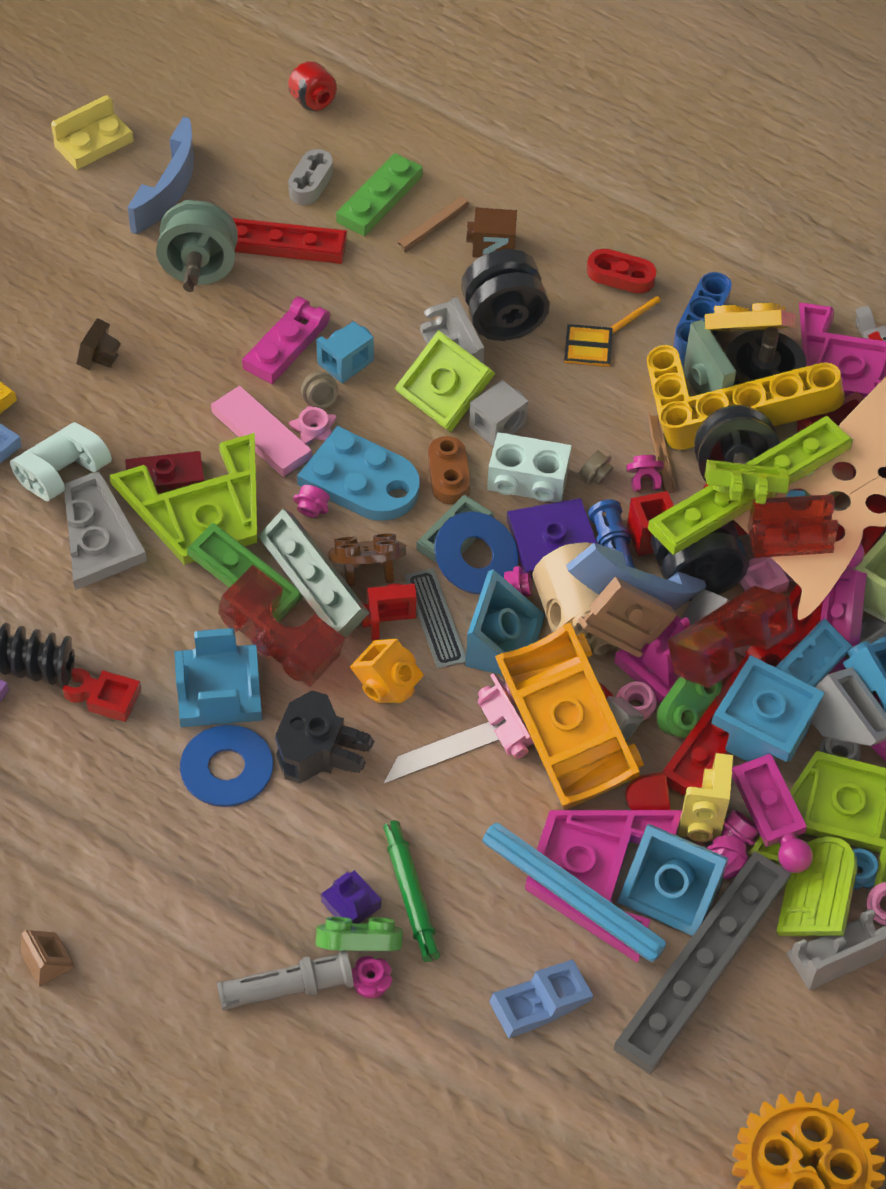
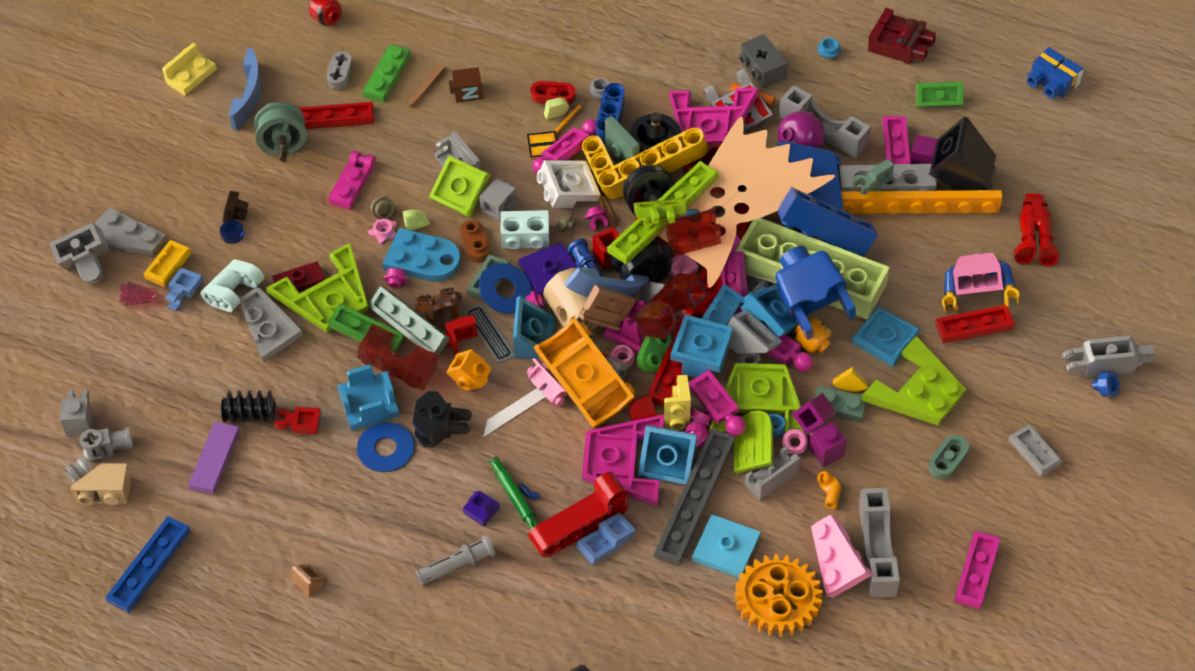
camera: 10 degrees left, 0 degrees up
(86, 381) = (232, 232): none -> clear blue tile
(272, 439) = (362, 245): bright pink tile -> none
(343, 935) = (484, 527): bright green plate -> none
(346, 351) = (392, 179): dark azure brick -> none
(364, 418) = (415, 219): none -> yellowish green tile
(371, 987) = (507, 553): dark pink plate -> none
(439, 896) = (536, 495): none -> blue leg
(505, 295) = (484, 124): black wheel -> none
(506, 954) = (580, 518): none -> red beam
(574, 892) = (598, 467): dark azure axle -> none
(611, 410) = (567, 183): none -> white plate
(618, 356) = (567, 145): none -> dark pink plate
(620, 293) = (555, 108): none -> yellowish green tile
(691, 275) = (597, 87): none -> light grey plate
(737, 318) = (634, 110): yellow plate -> none
(737, 1058) = (726, 546): none -> medium azure plate

